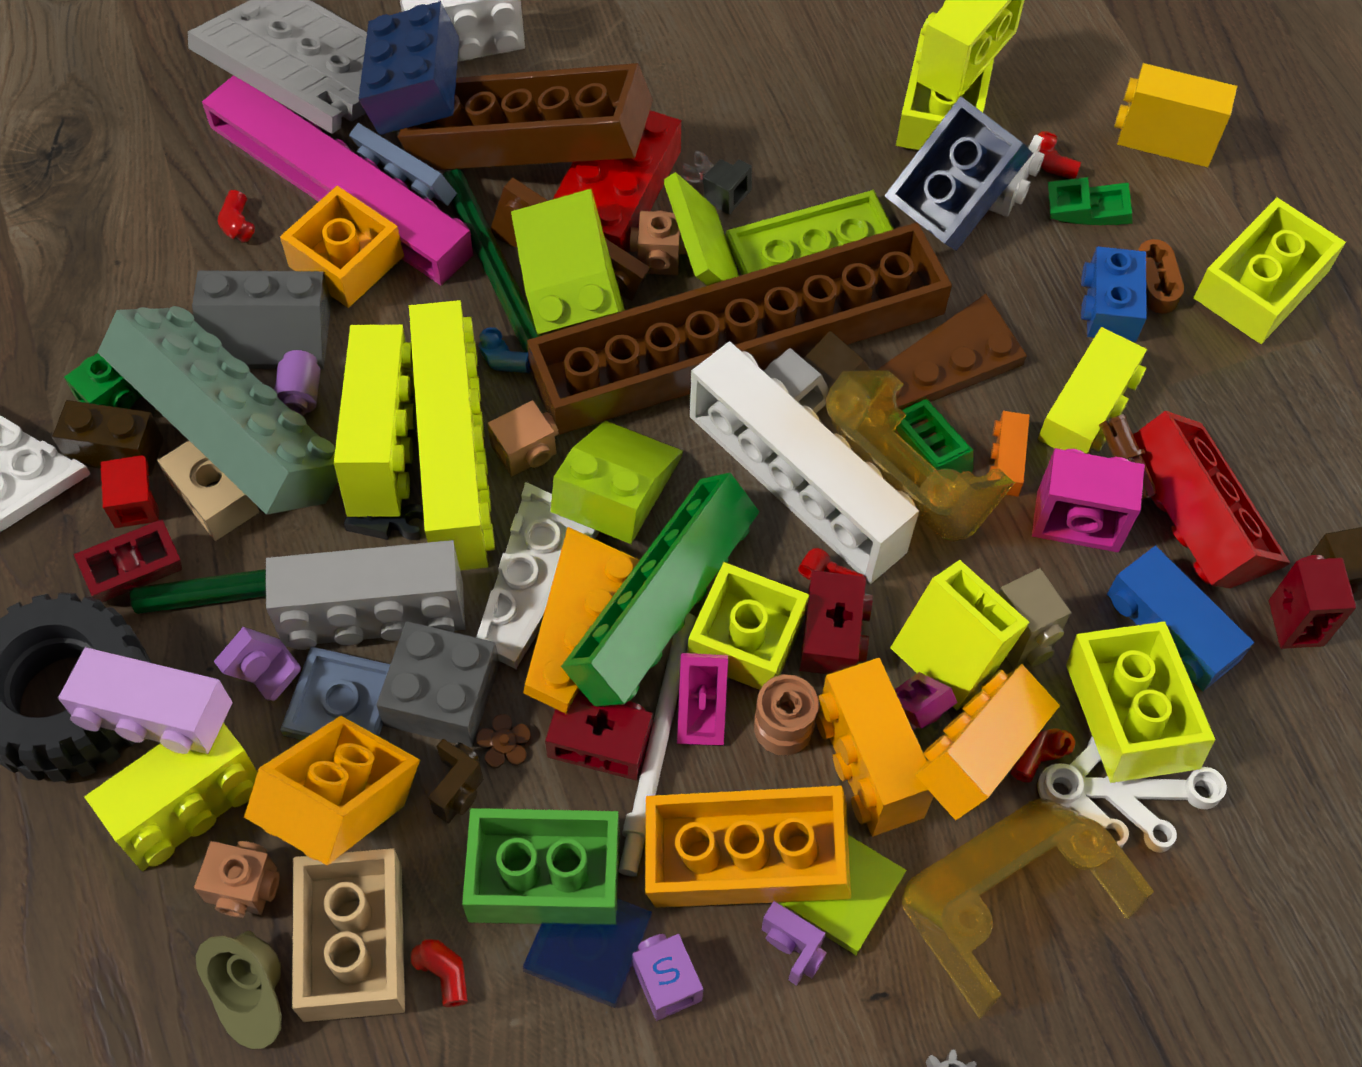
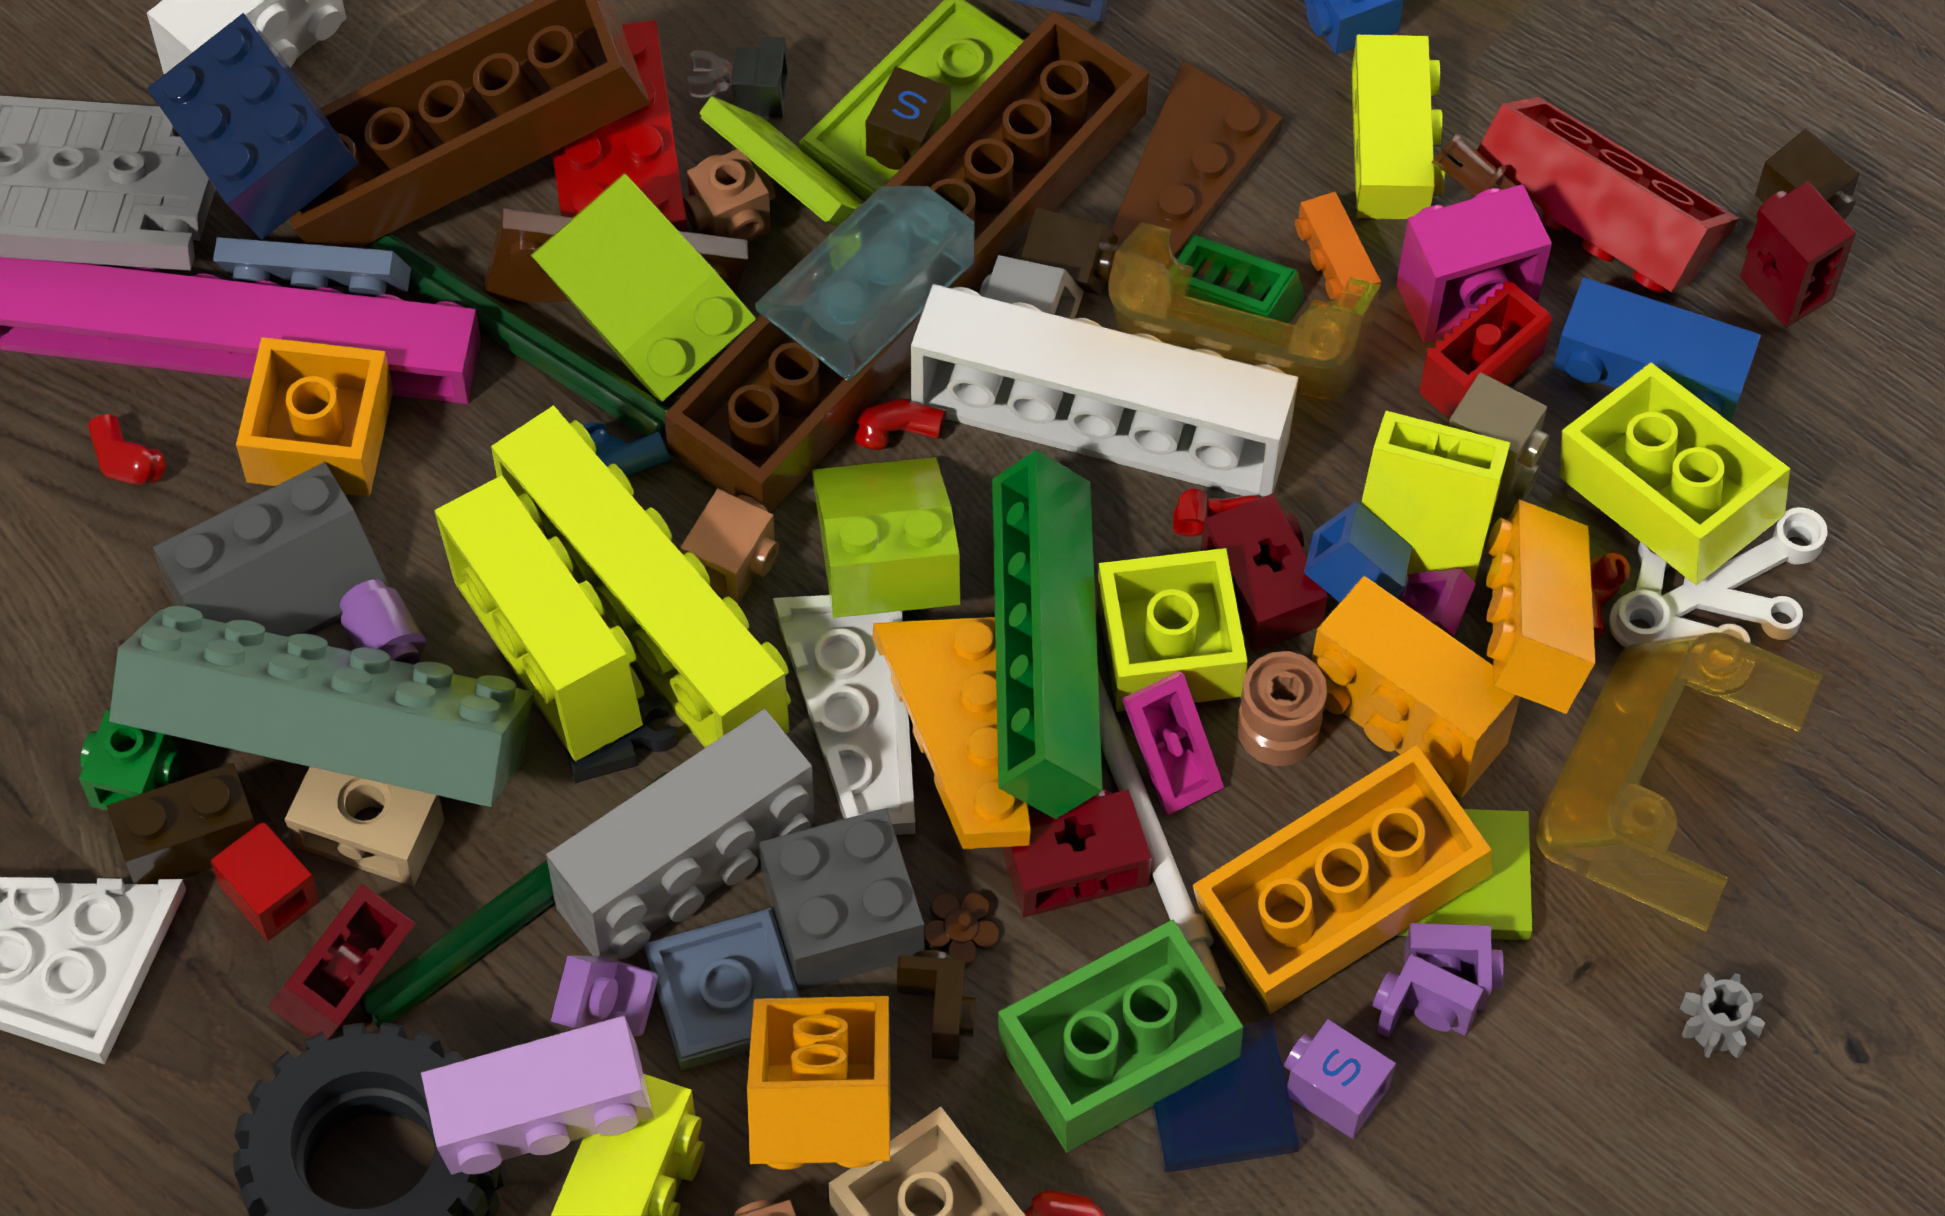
camera: 30 degrees left, 0 degrees up
(675, 414) = (898, 415): none -> red arm
(698, 320) = (871, 276): none -> clear light blue slope
(764, 959) = (1432, 993): none -> medium lavender bracket
(789, 240) = (905, 117): none -> dark brown brick
(896, 641) = (1354, 547): none -> blue brick
(1067, 557) = (1494, 340): none -> red brick

